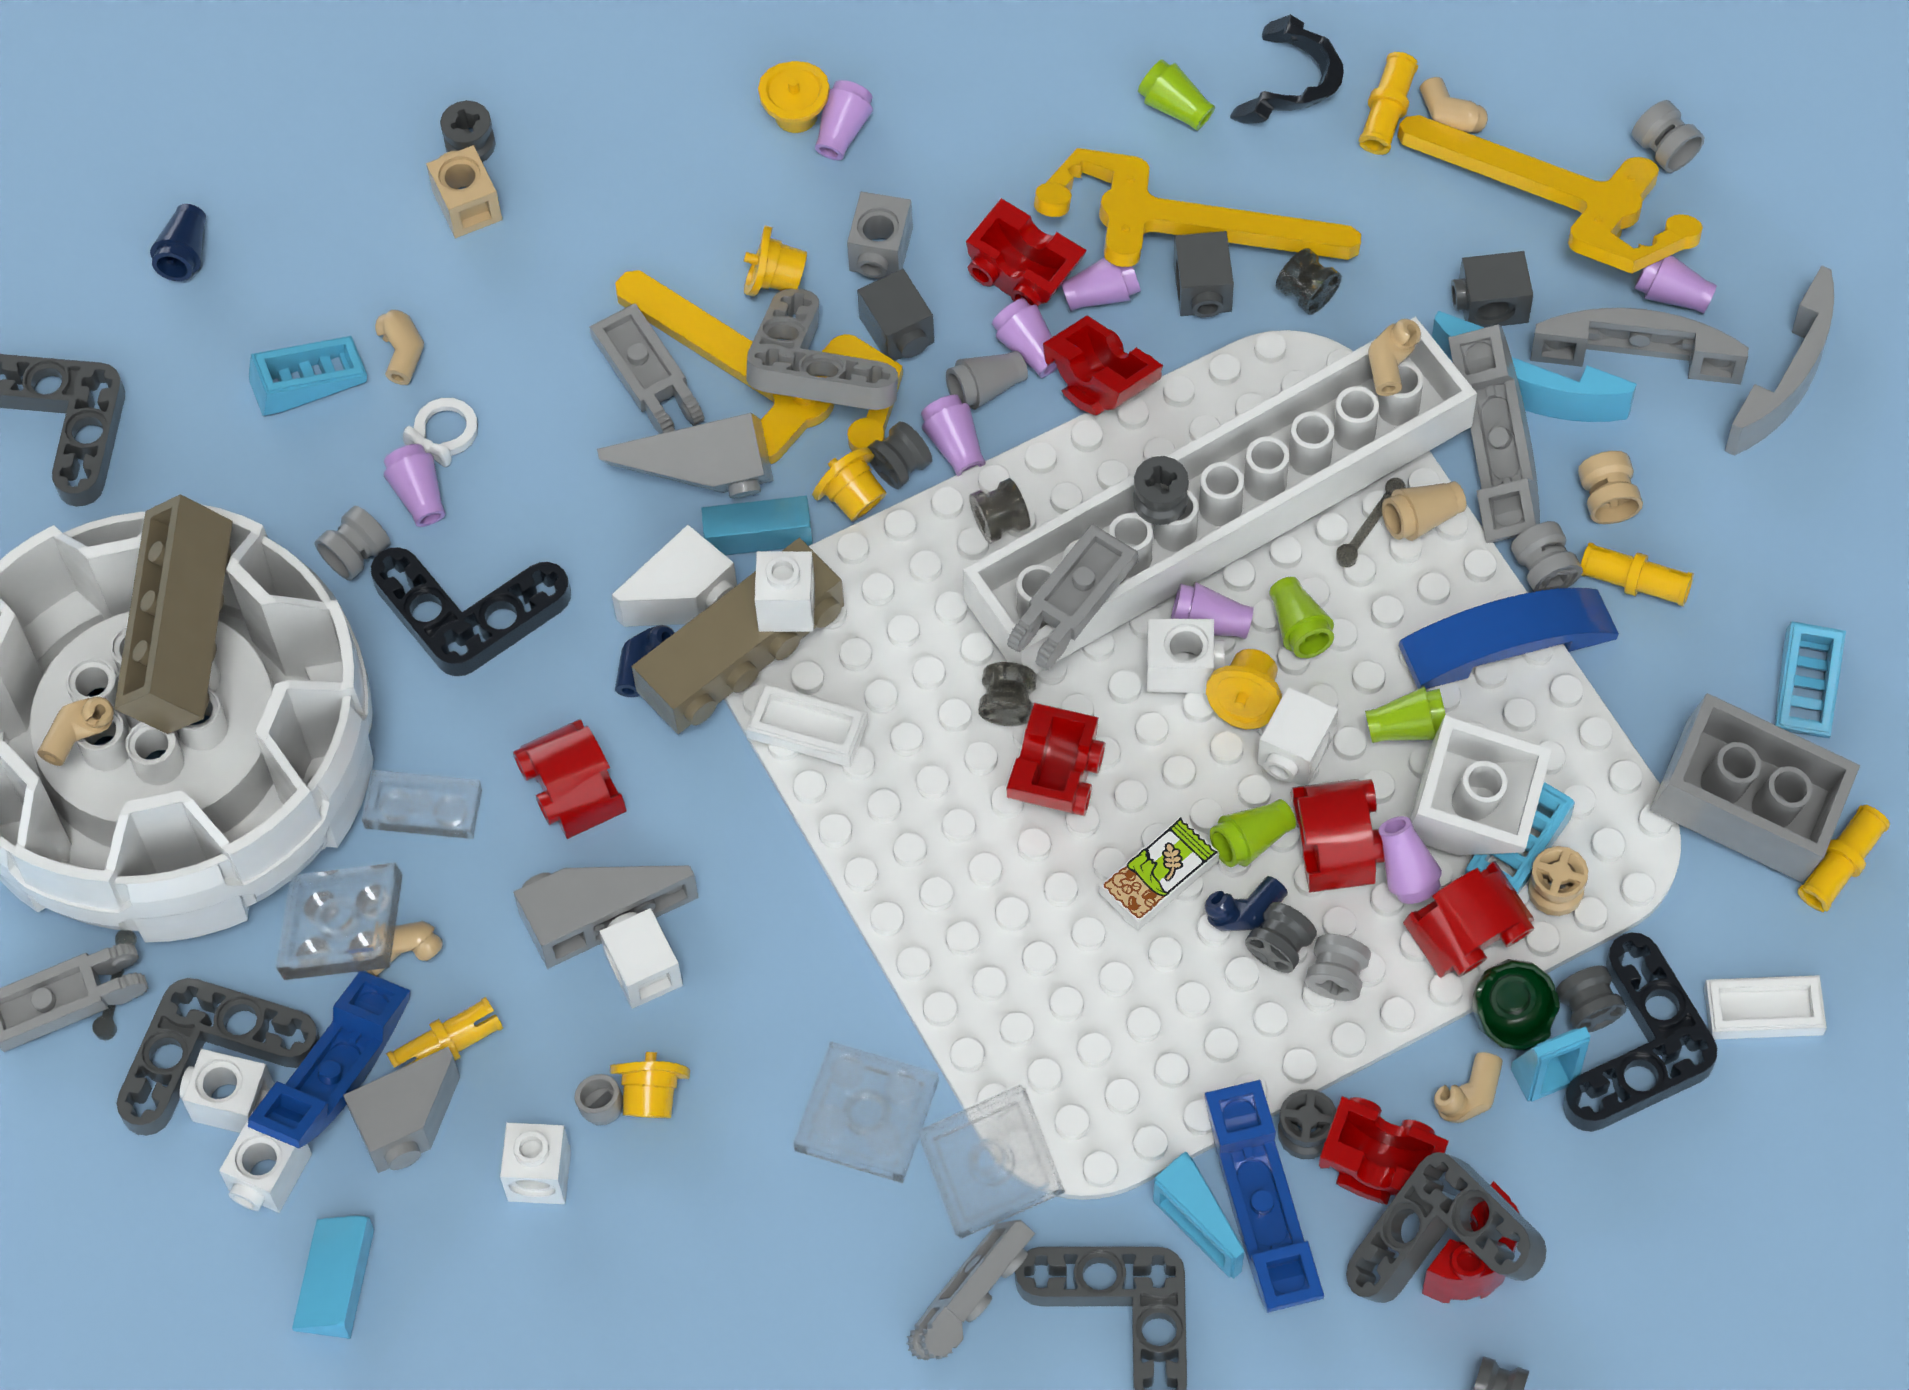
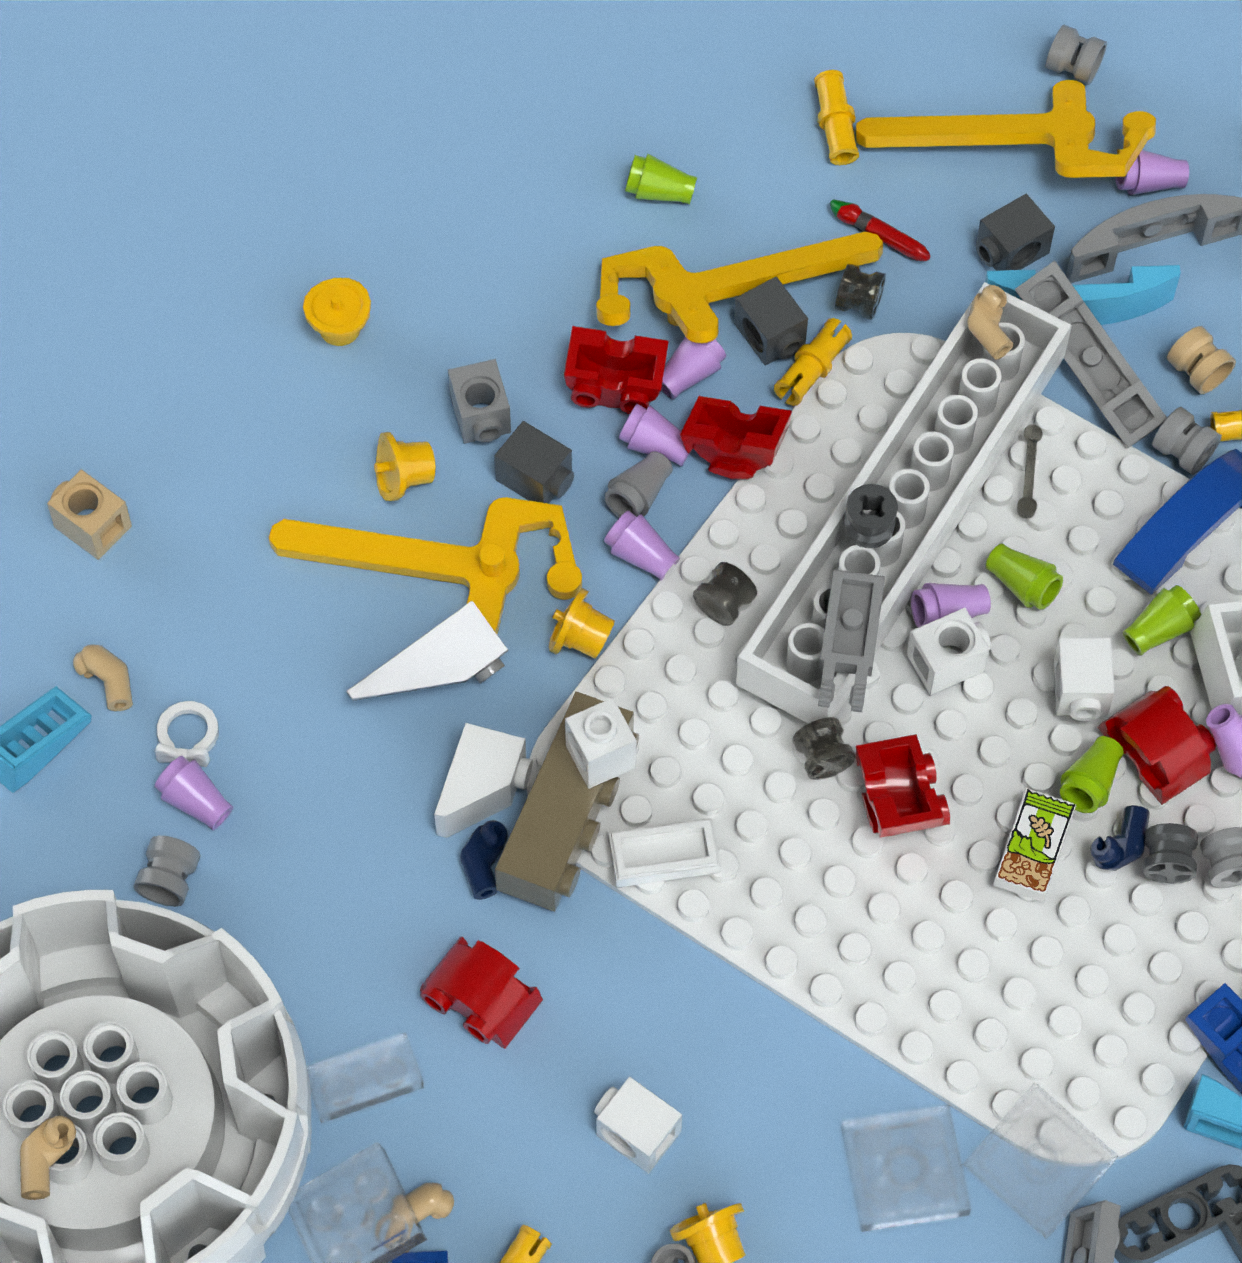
camera: 30 degrees left, 0 degrees up
(174, 615) = (85, 1009): dark tan brick -> none
(455, 130) = (57, 444): dark grey wheel -> none
(458, 626) = (298, 902): black beam -> none
(574, 904) = (561, 1101): light grey slope -> none
(645, 366) = (340, 602): light grey hinge -> none
(757, 525) = (516, 695): medium azure slope -> none
(791, 368) = (479, 550): light grey beam -> none
(842, 118) = (388, 314): lavender cone -> none
(899, 455) = (606, 582): dark grey wheel -> none
(1223, 330) = (813, 361): none -> yellow pin
(1245, 690) = (1020, 656): yellow piece -> none
(1290, 30) = (757, 95): black helmet -> none
(1350, 205) = (892, 237): none -> red piece
(1422, 508) = (1067, 443): tan cone -> none
(1452, 111) = (888, 104): tan arm -> none

